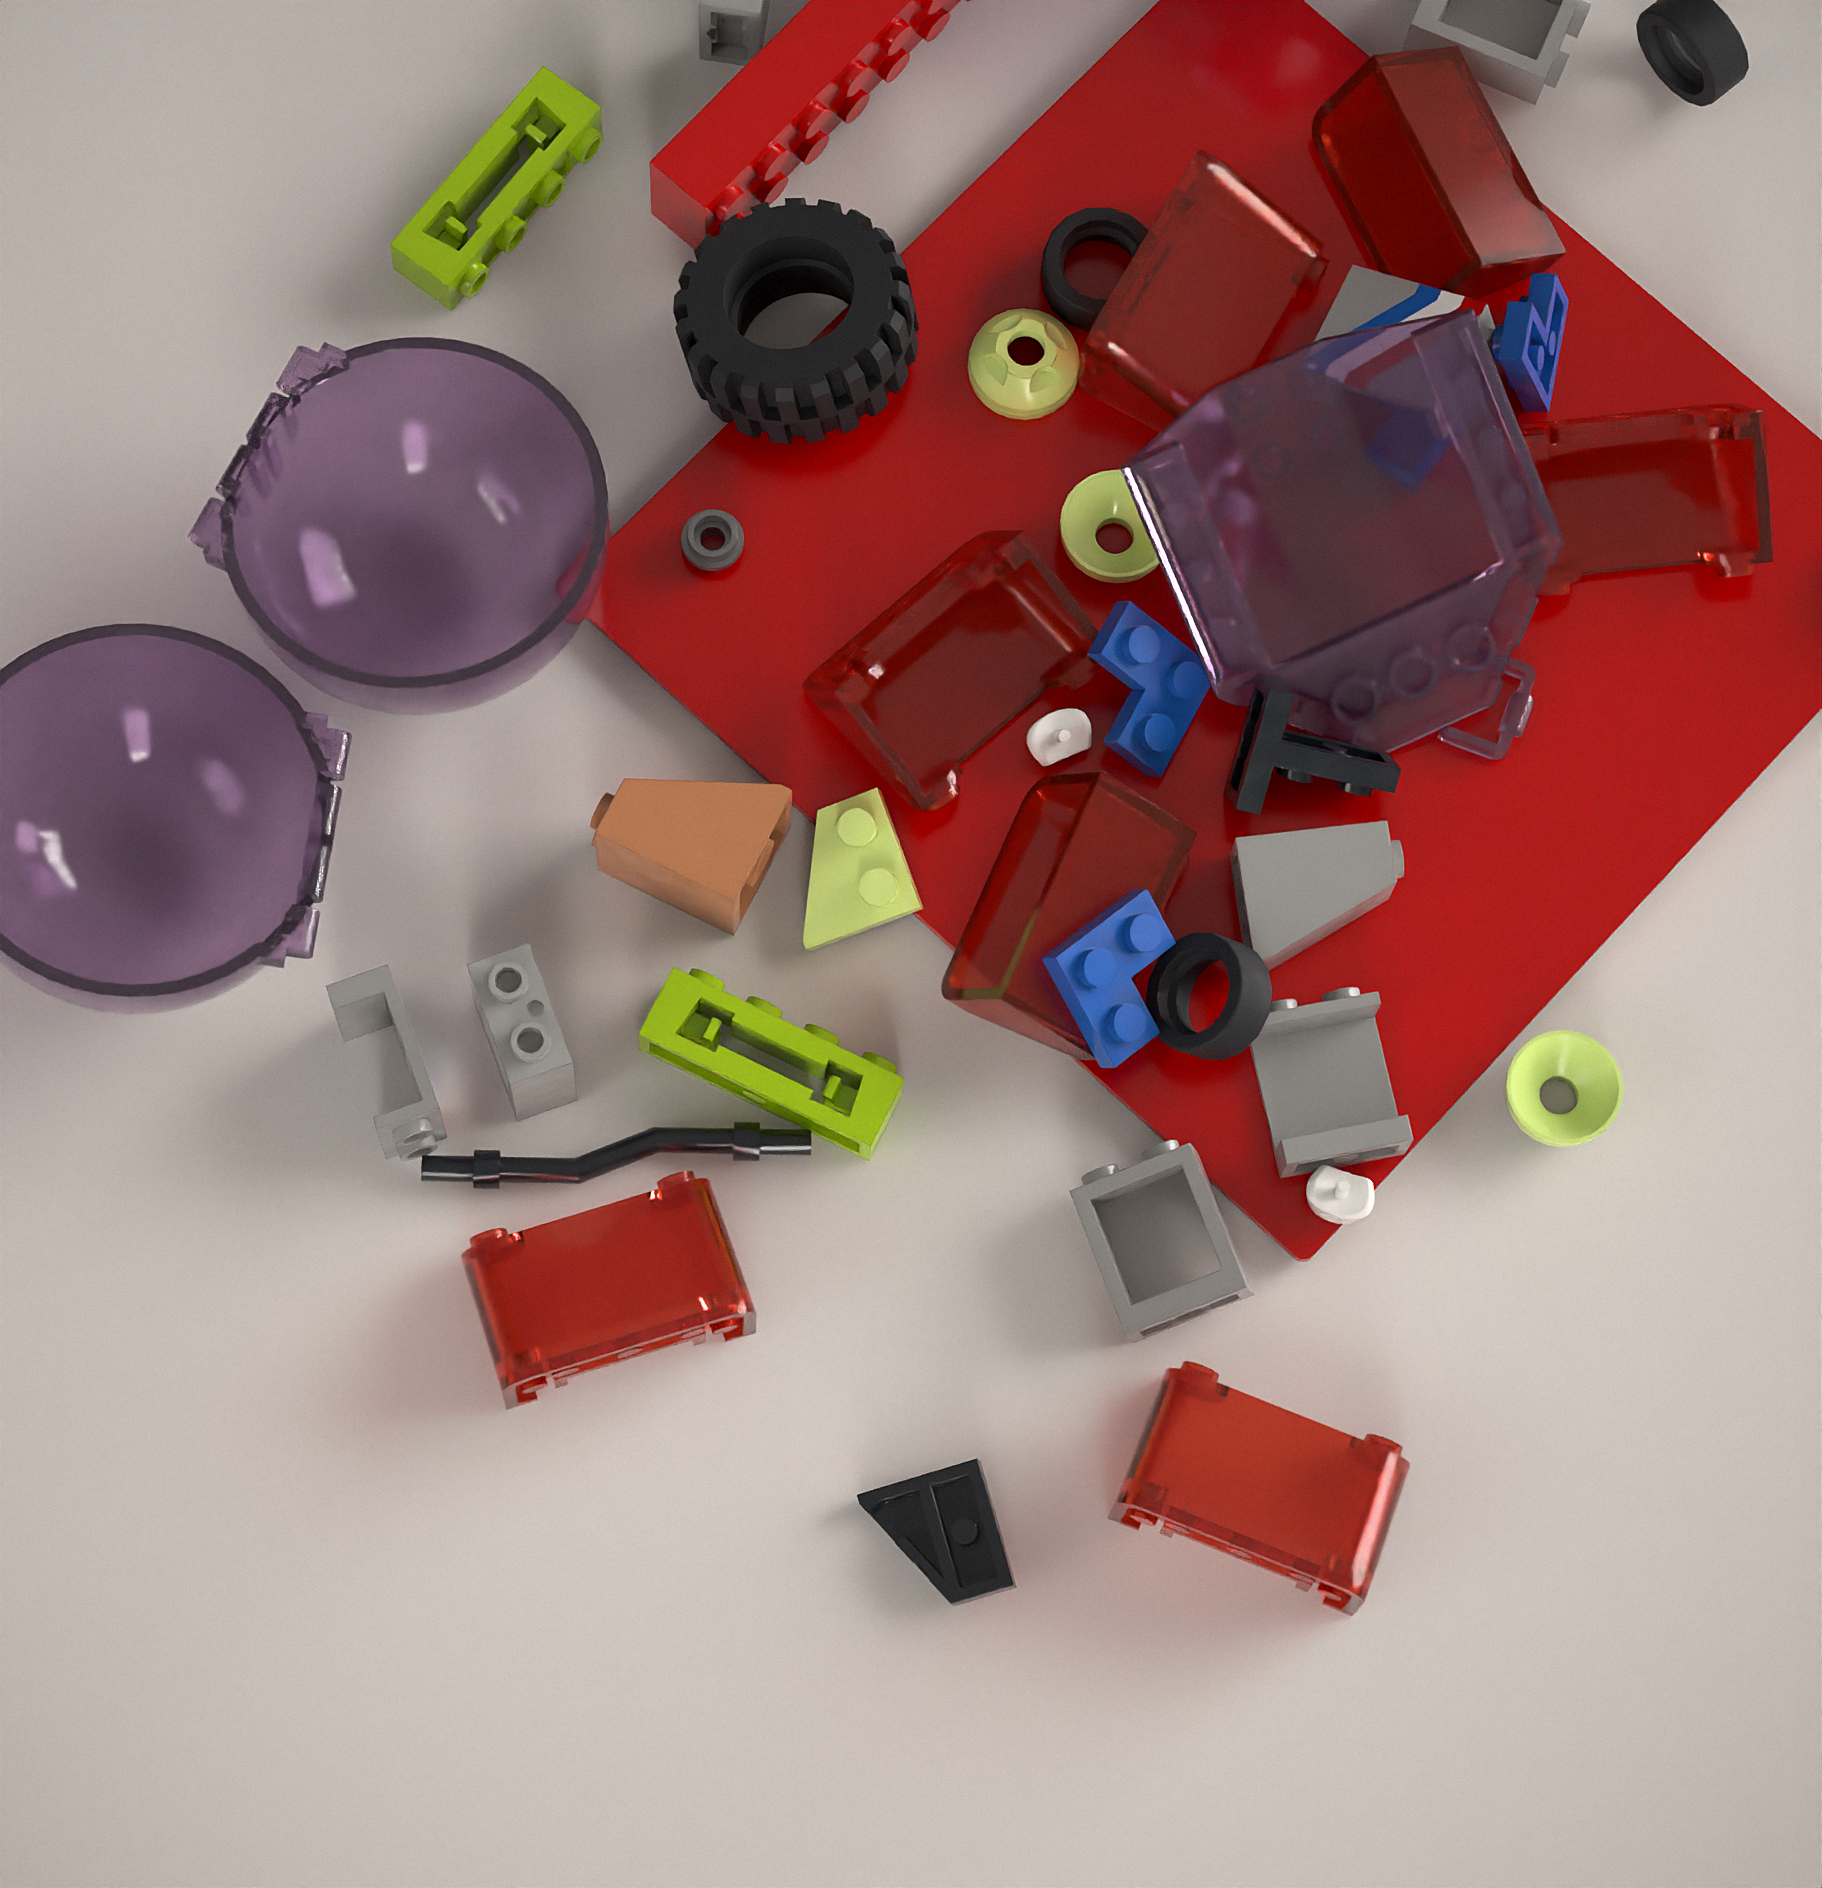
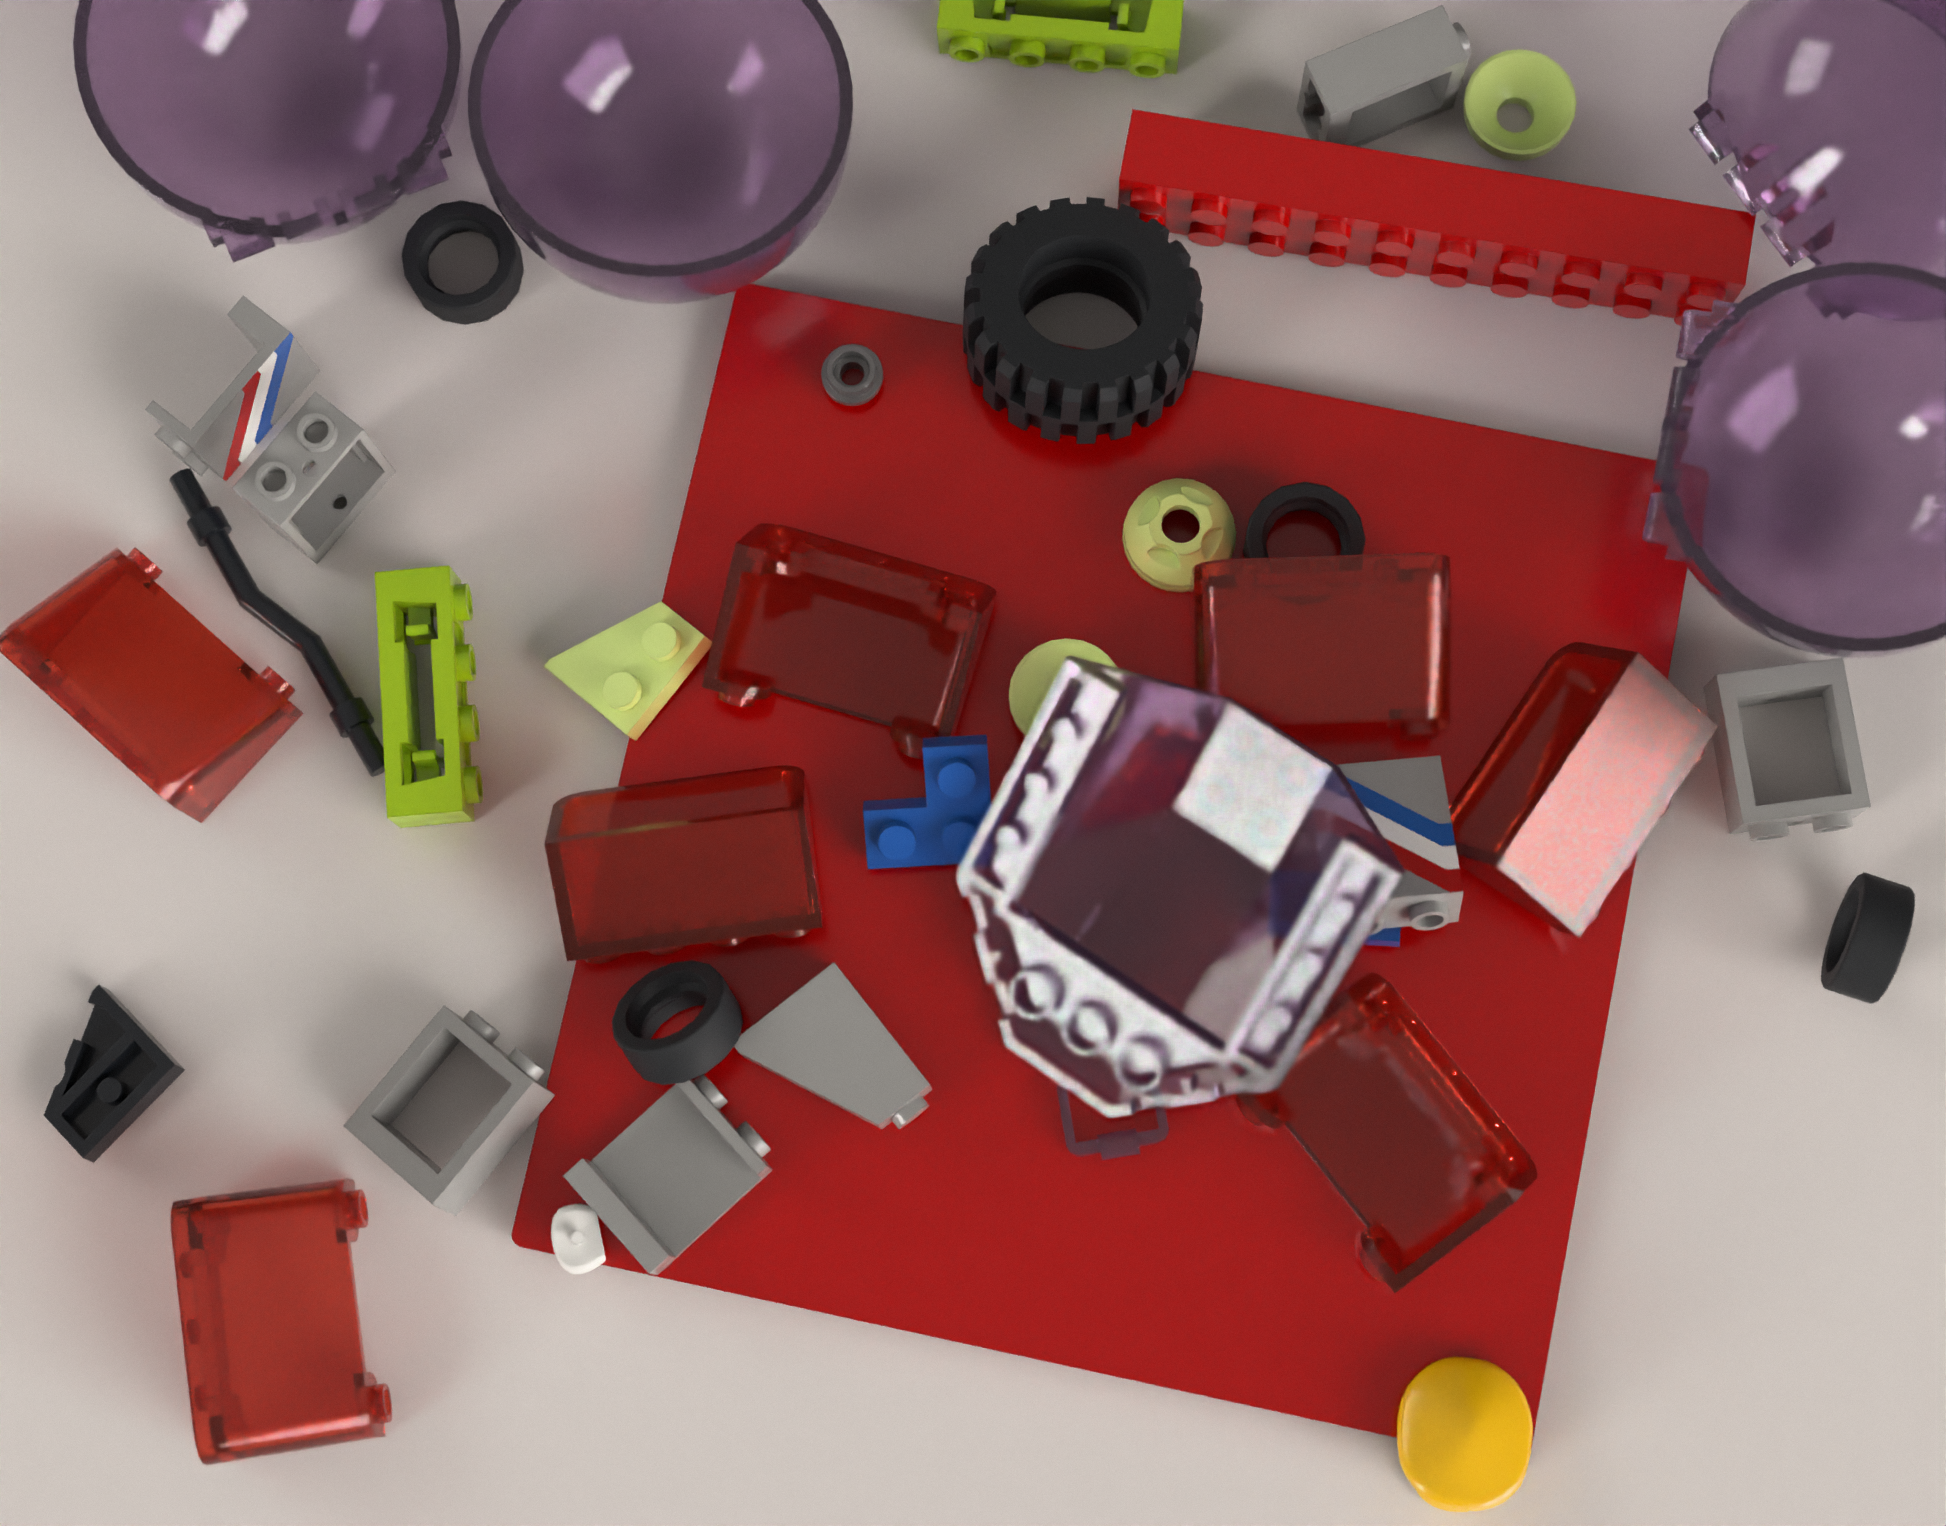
camera: 75 degrees right, 5 degrees up
(423, 842) = (437, 226): none -> black tyre
(693, 842) = (559, 522): nougat slope -> none
(1059, 735) = (850, 760): white piece -> none
(1096, 973) = (639, 910): blue plate -> none
(1297, 755) = (952, 979): black bracket -> none
(1532, 341) = (1461, 959): blue plate -> none
(1580, 1064) = (756, 1386): yellowish green piece -> none

